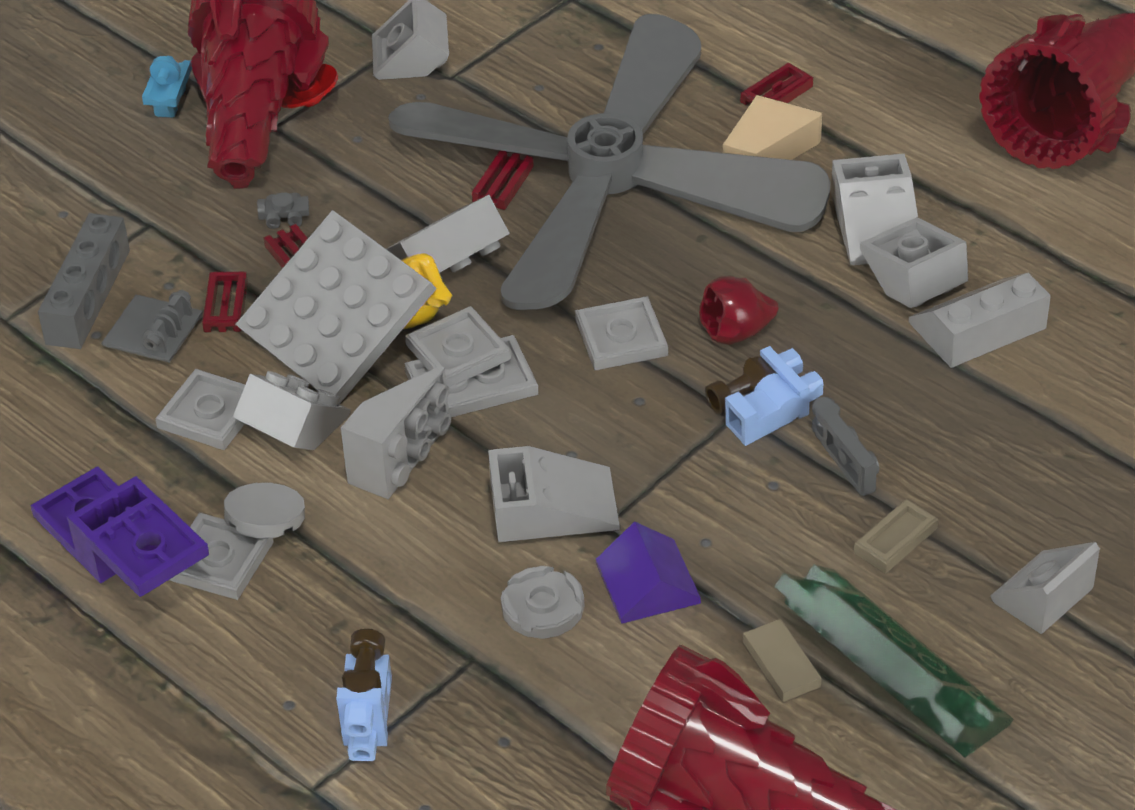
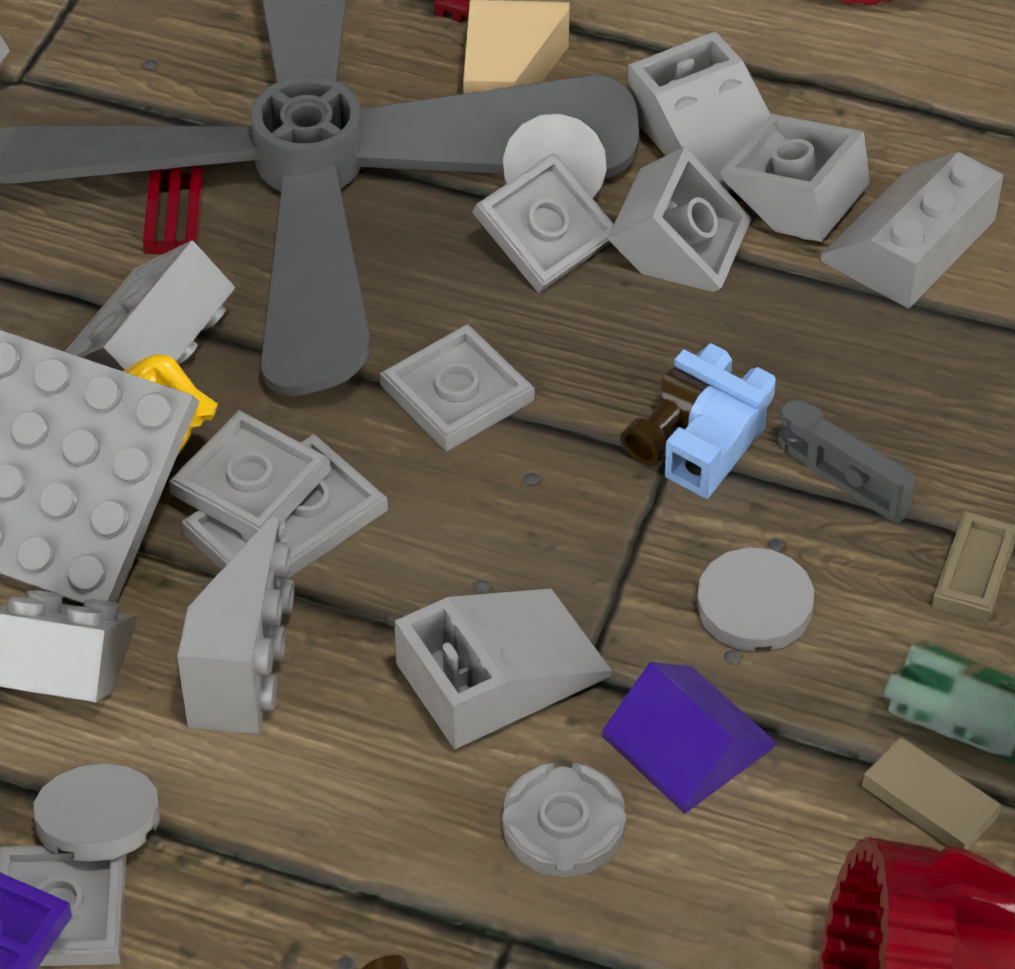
camera: 25 degrees left, 5 degrees up
(731, 244) = (545, 222): none -> light grey tile
(735, 309) = (600, 311): dark red piece -> none
(737, 512) = (755, 599): none -> light grey tile
(755, 213) = (568, 138): none -> light grey tile
(821, 272) = (680, 223): none -> light grey slope

